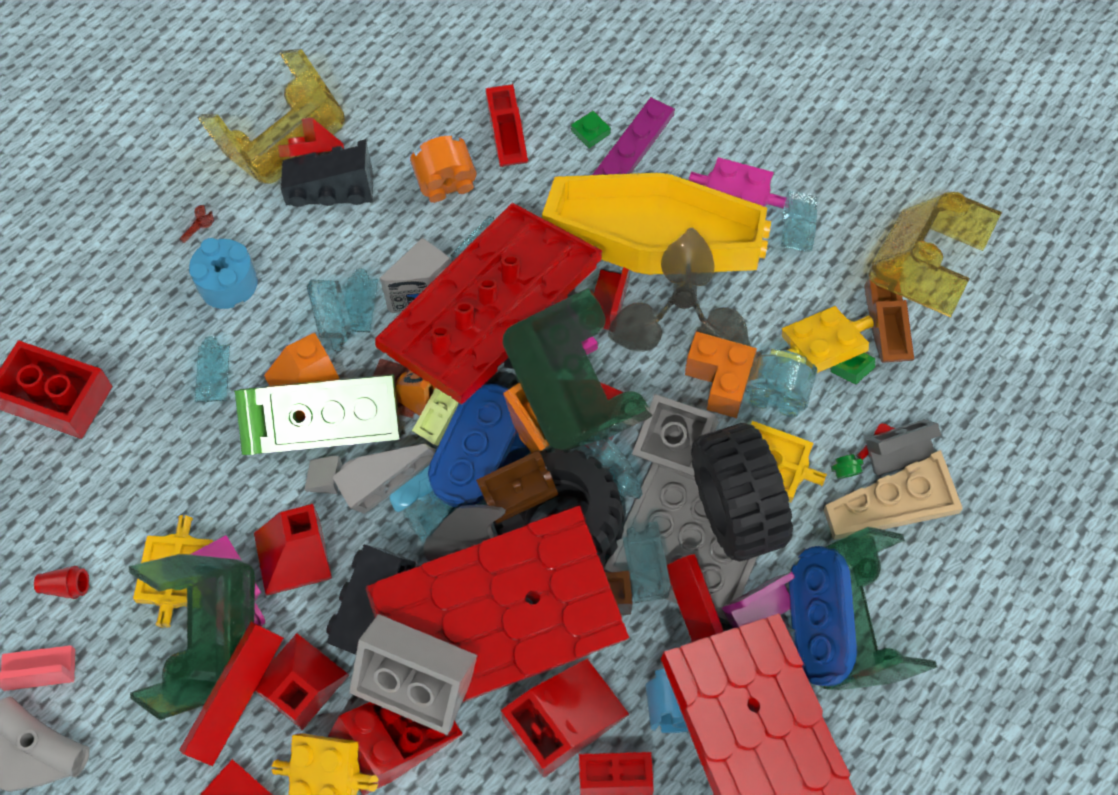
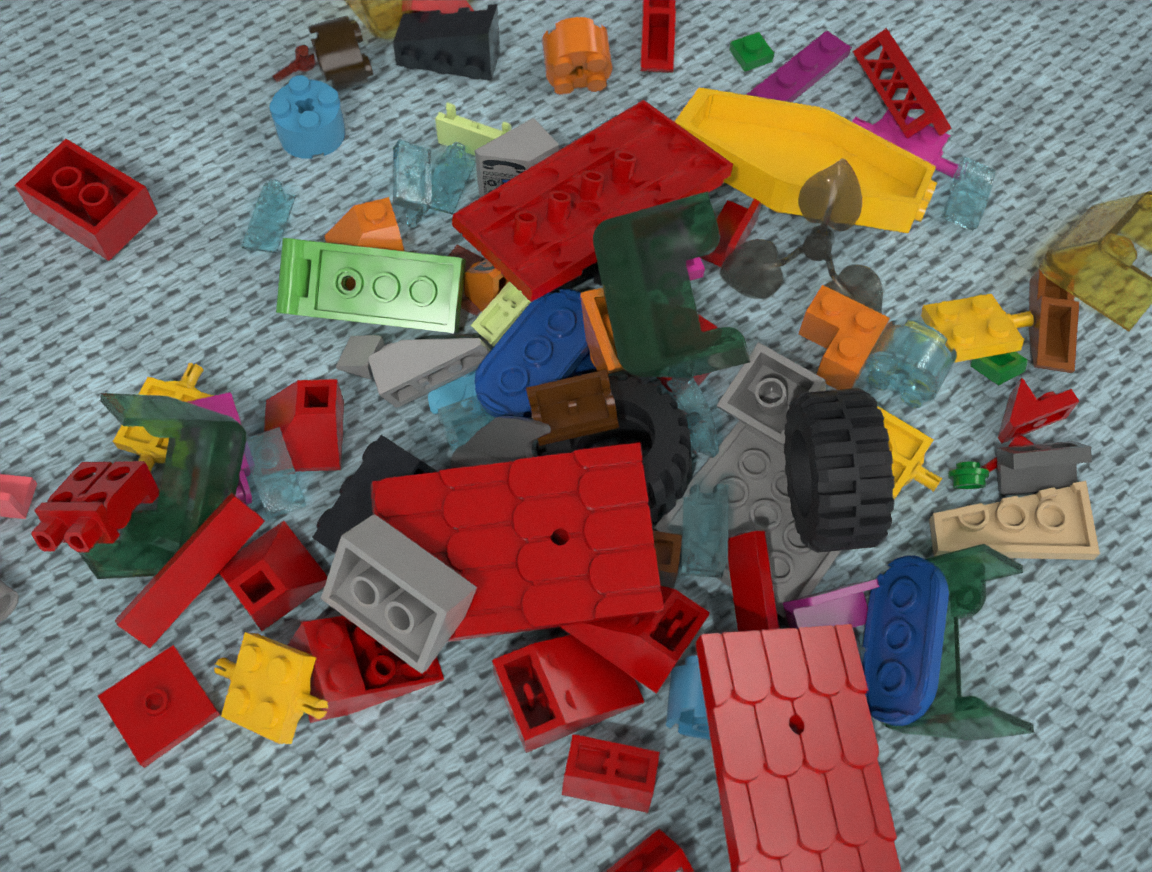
camera: 10 degrees right, 0 degrees up
(64, 582) = (43, 407): red cone -> none
(137, 660) = (93, 506): none -> red hips
(236, 209) = (339, 52): none -> dark brown brick
(279, 596) = (273, 473): none -> clear light blue slope
(368, 257) = (470, 133): none -> yellowish green hinge
(622, 667) = (646, 644): none -> red slope
(731, 132) = (910, 81): none -> red fence
(885, 403) = (1027, 413): none -> red slope

